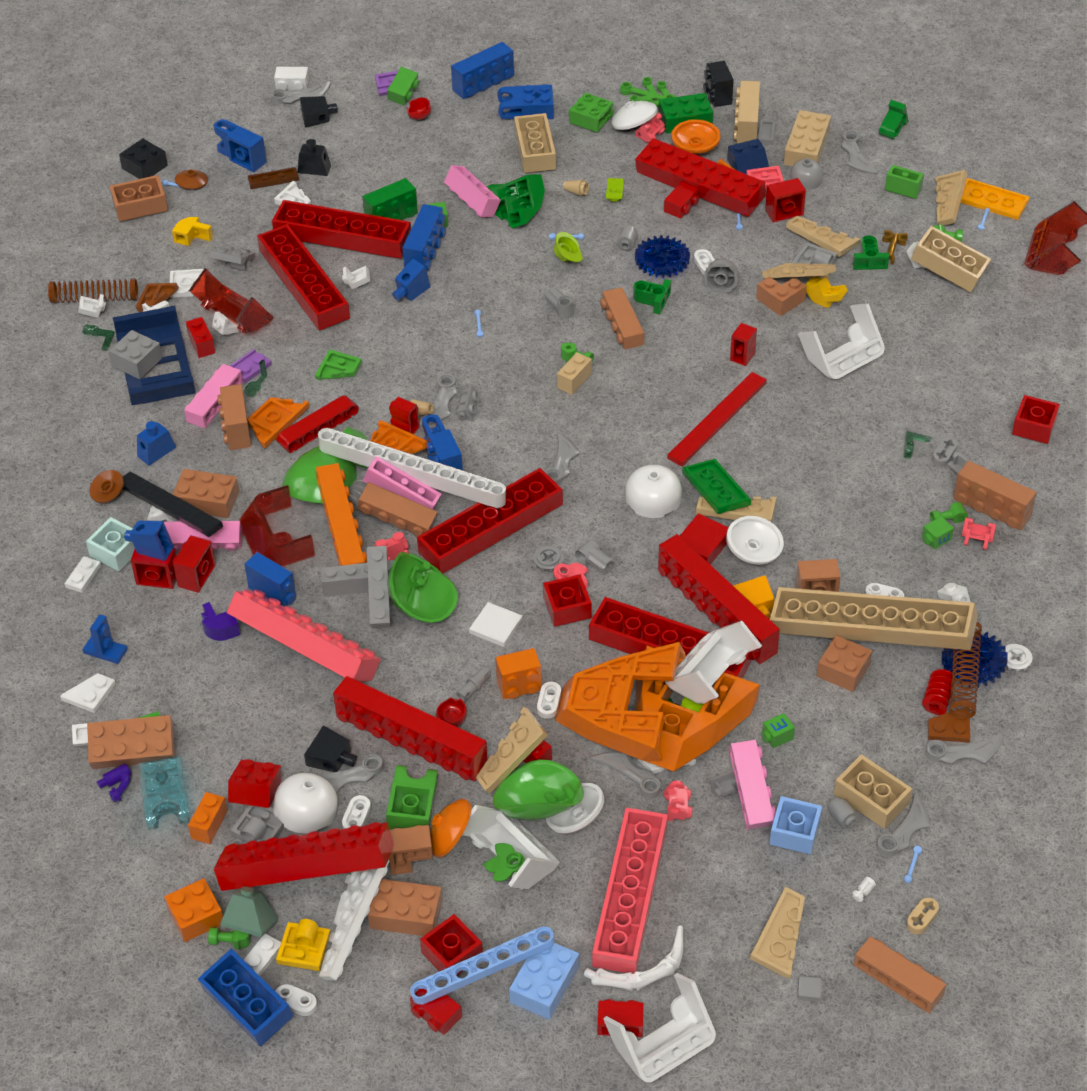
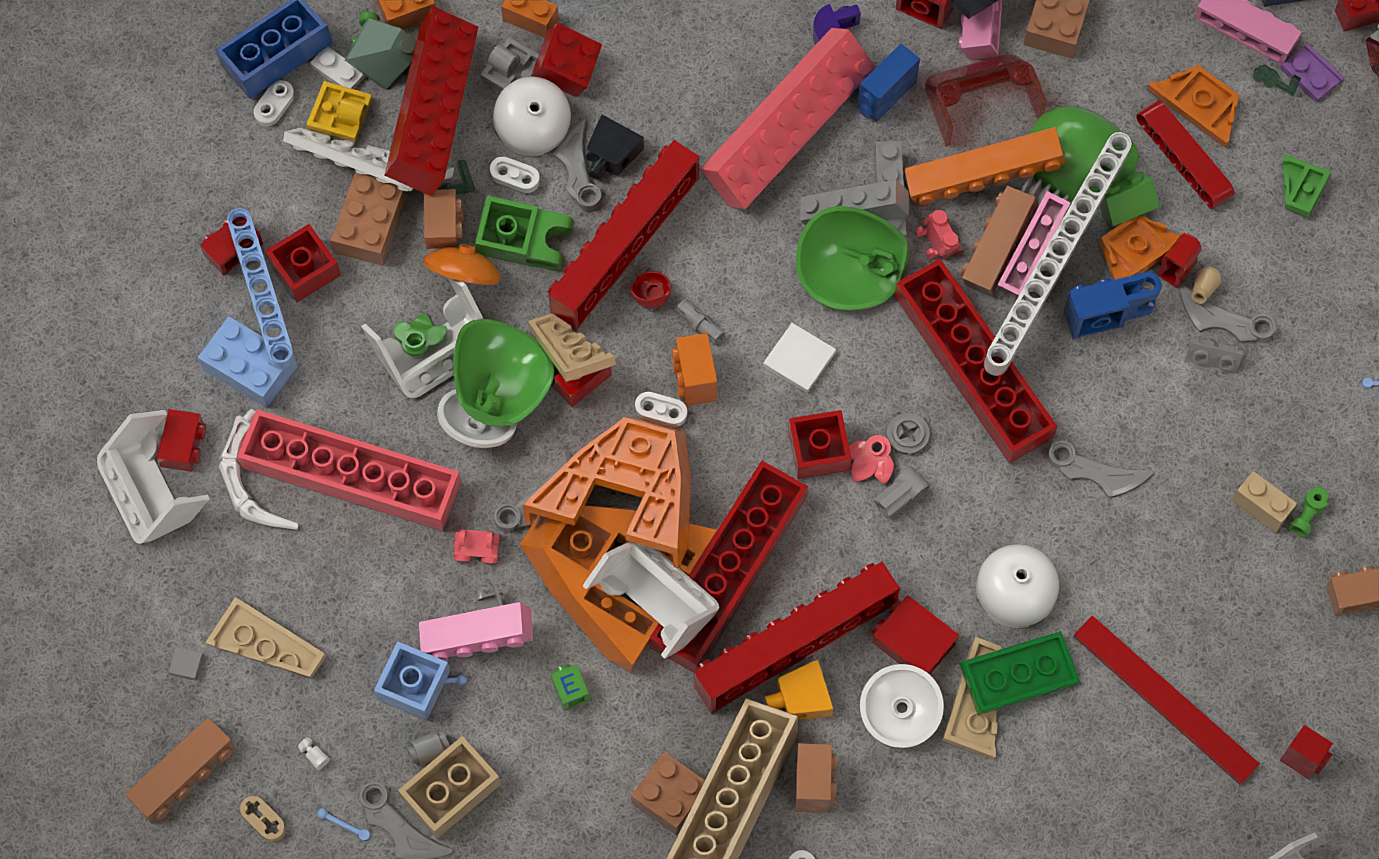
camera: 95 degrees right, 20 degrees up
(234, 416) = (1193, 43): nougat brick -> none

